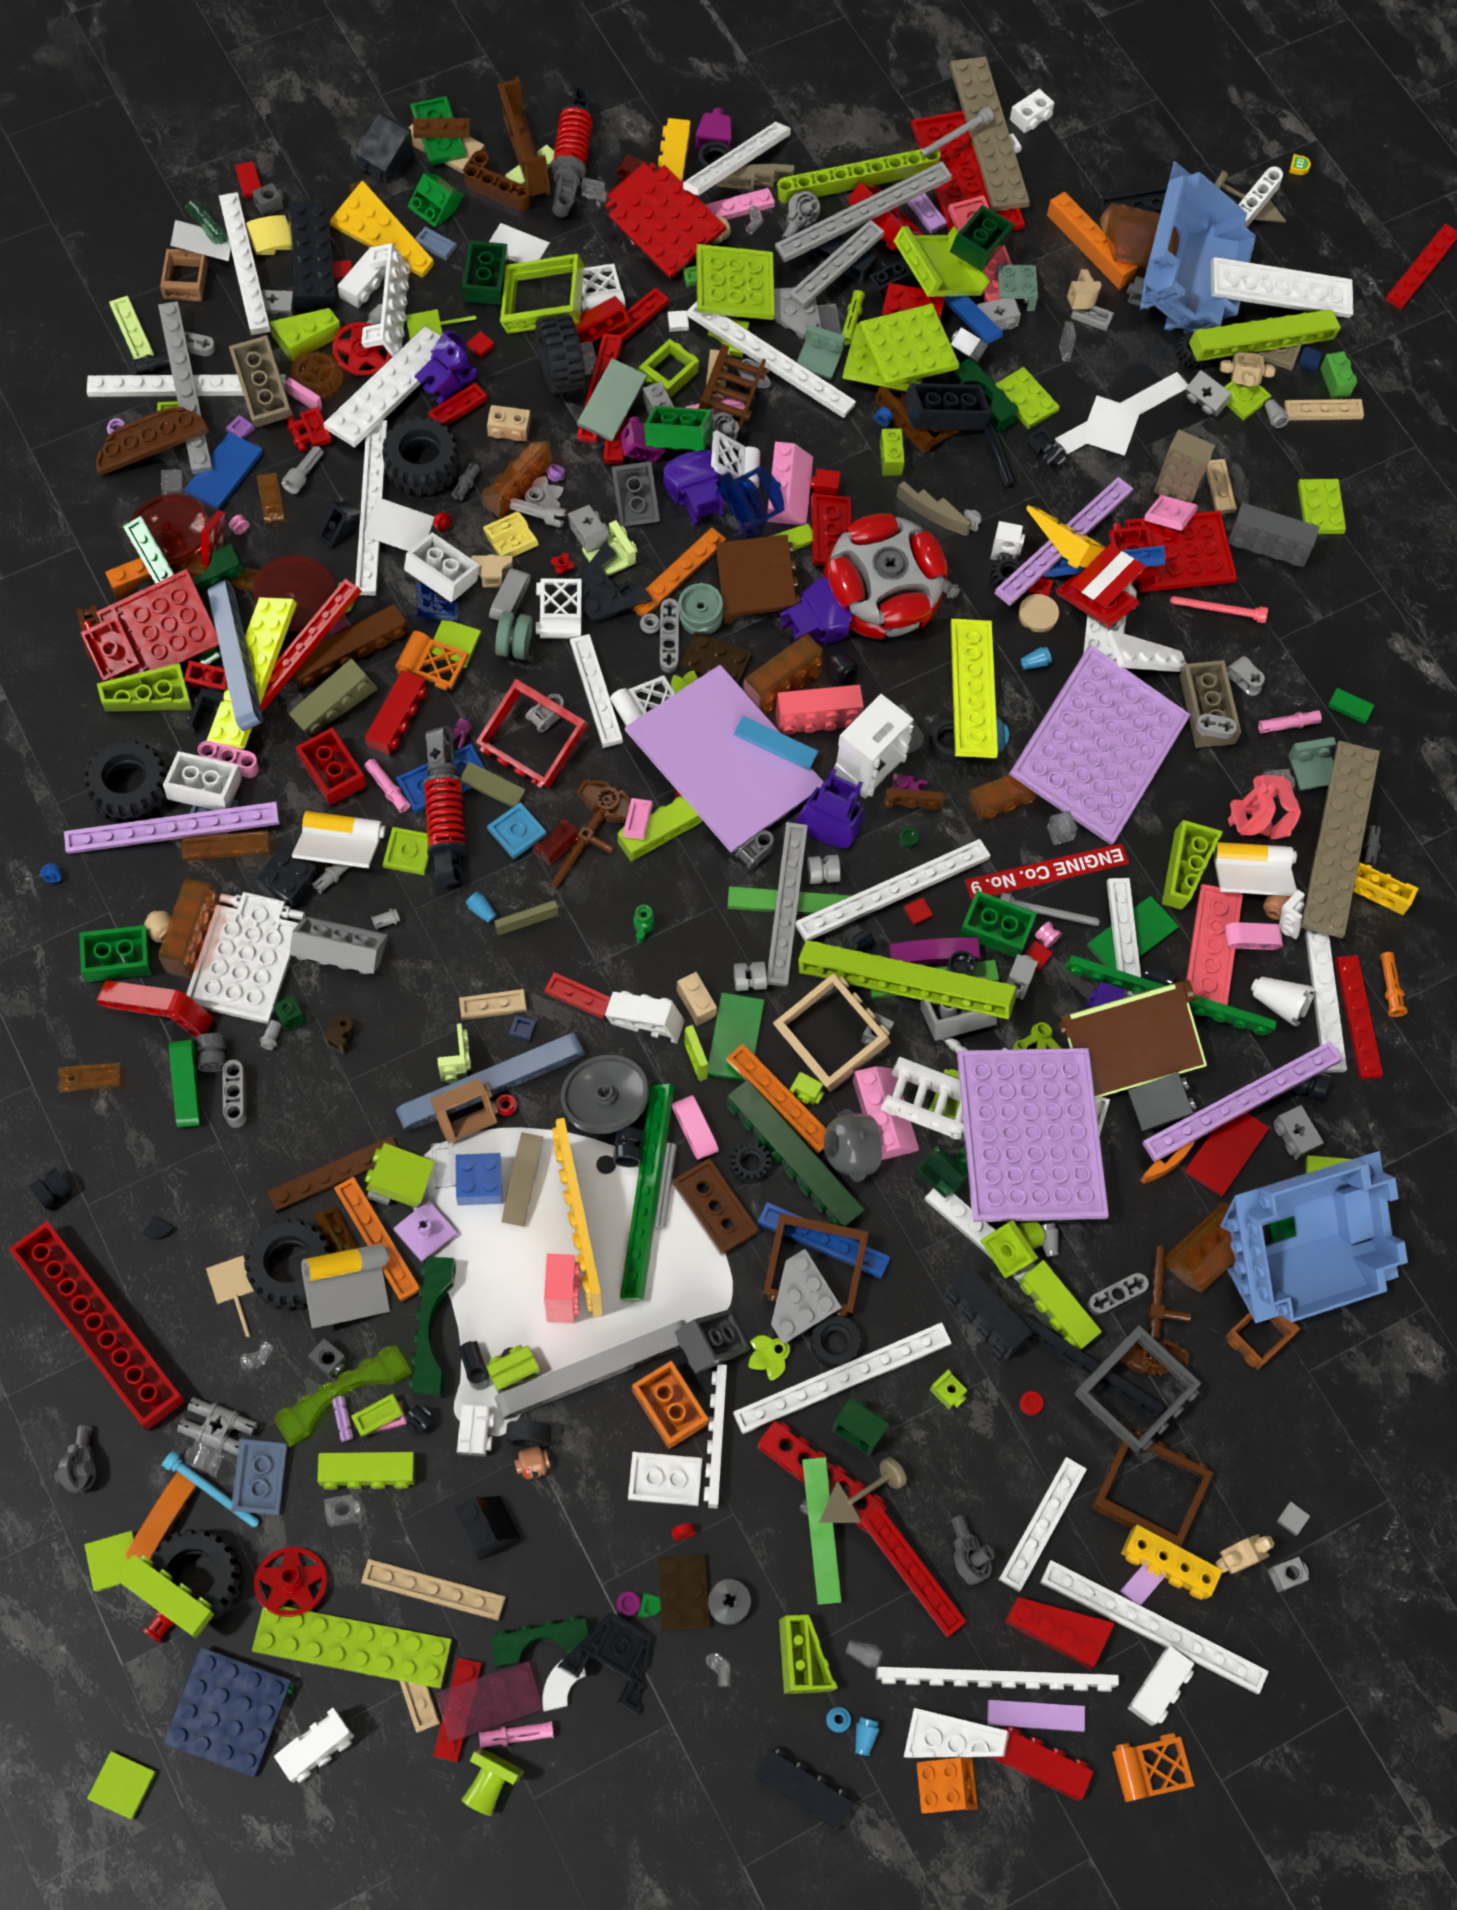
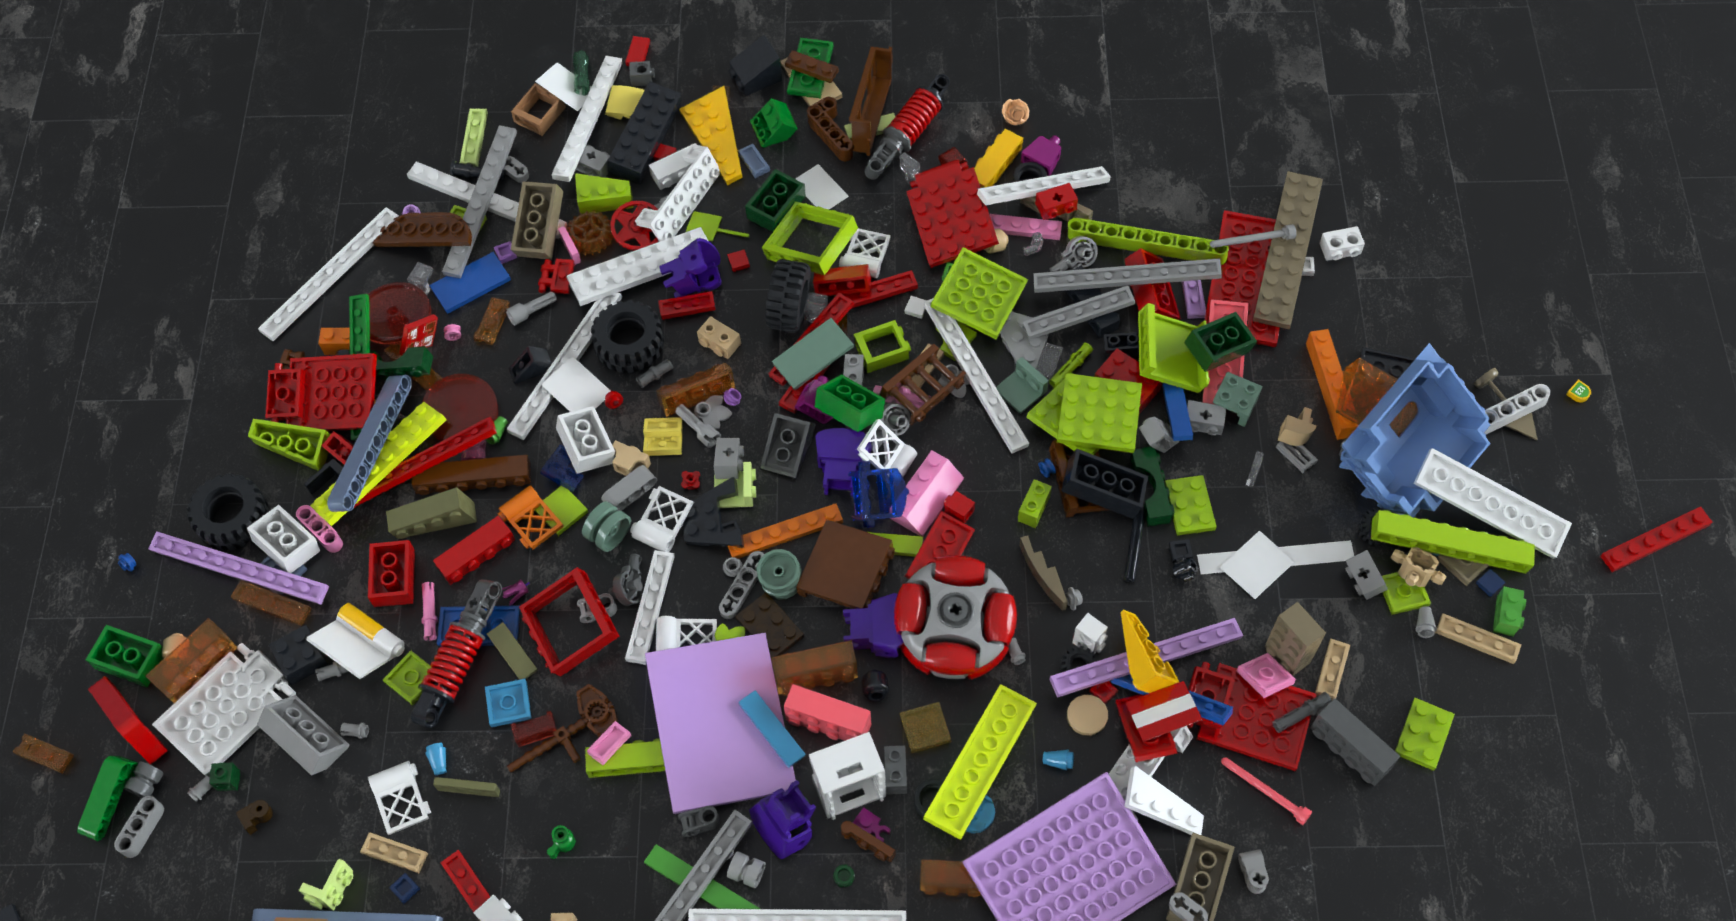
camera: 35 degrees right, 5 degrees down
(70, 522) = (326, 276): none -> white plate
(457, 940) = (397, 780): none -> white piece
(565, 676) = (630, 591): none -> dark grey pin
(665, 99) = (1015, 111): none -> light nougat hair
(758, 168) = (1056, 201): none -> red brick
(906, 683) = (925, 727): none -> clear yellow plate
(1221, 523) = (1309, 708): none -> dark grey pin

